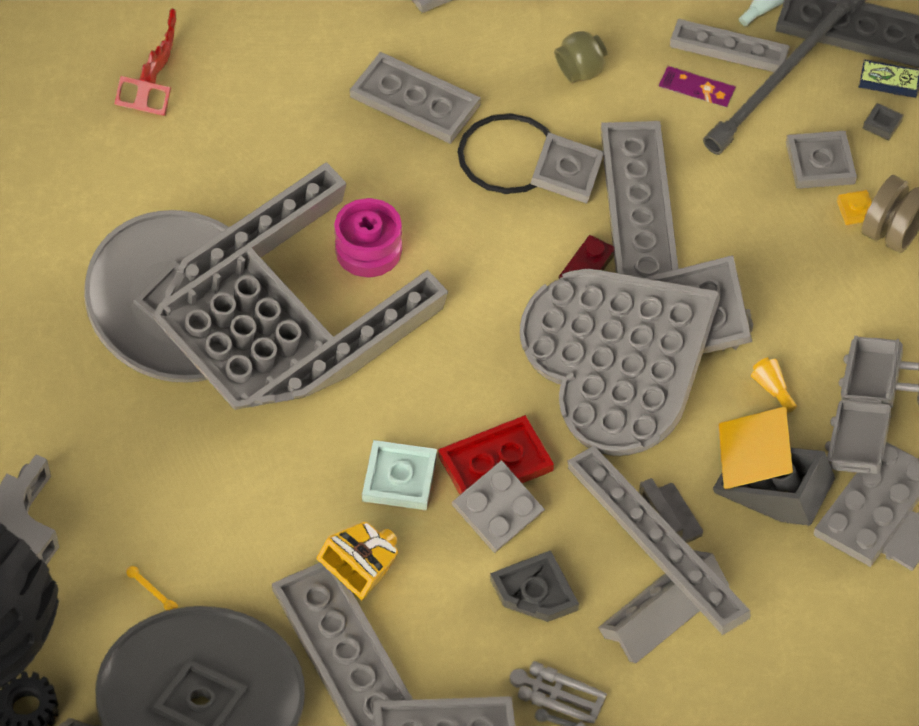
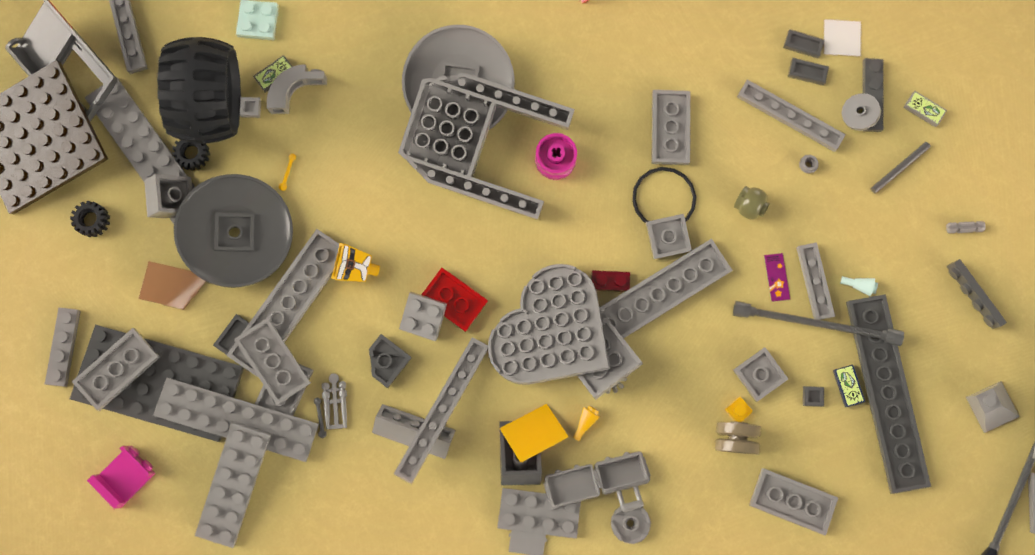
camera: 60 degrees right, 25 degrees up
(399, 475) = (417, 255): light aqua plate -> none
(672, 509) = (472, 406): flat silver panel -> none

